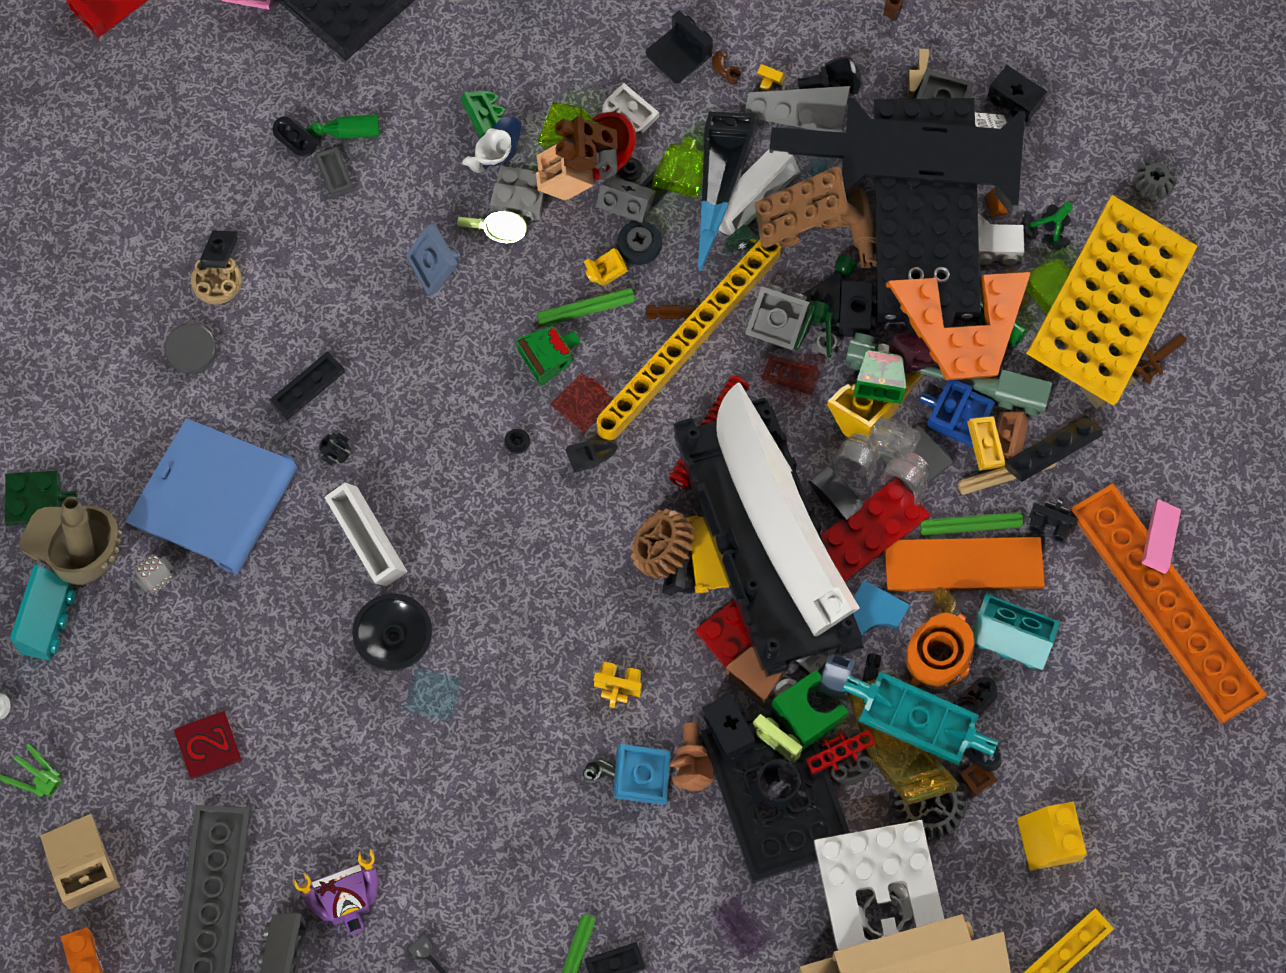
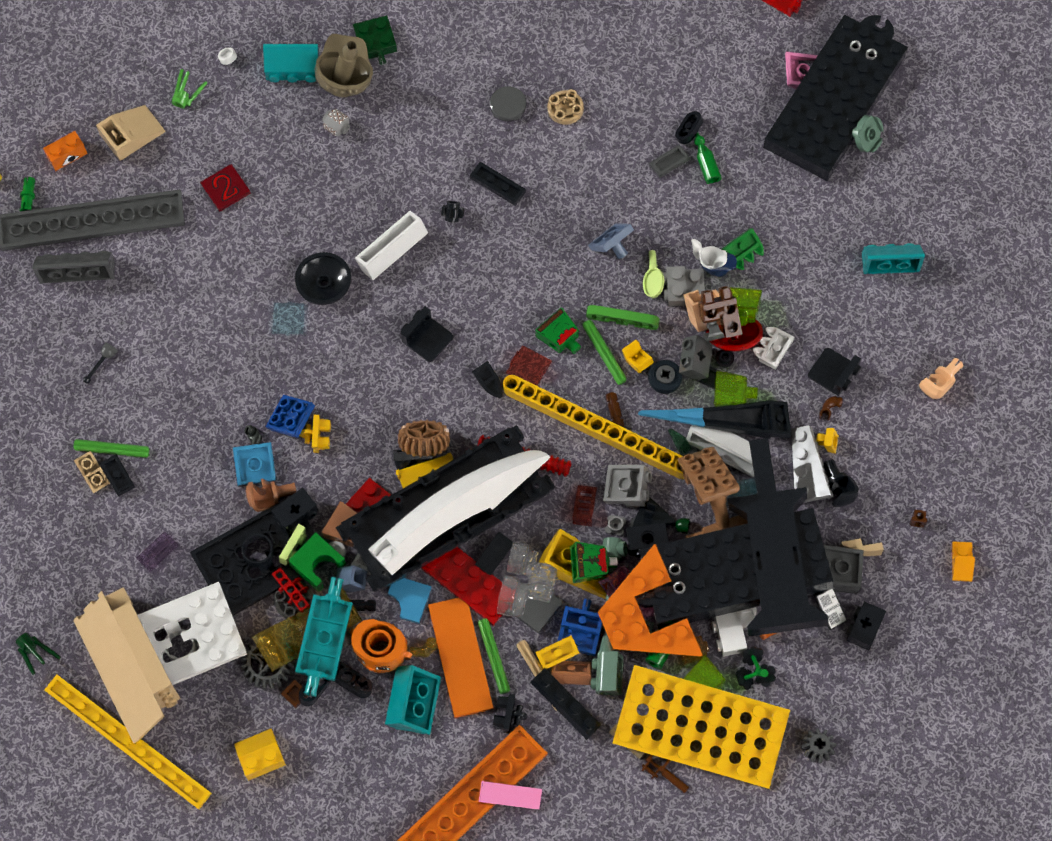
camera: 80 degrees right, 0 degrees up
(213, 494) = (402, 145): medium blue door -> none
(218, 249) = (586, 100): black plate -> none
(343, 894) = (134, 292): torso -> none
(509, 518) = (425, 335): none -> black bracket
(517, 433) = (487, 323): black plate -> none
(544, 273) = (622, 317): none -> bright green beam
(584, 714) = (290, 416): none -> blue tile
(816, 315) = (632, 509): dark green plant -> none

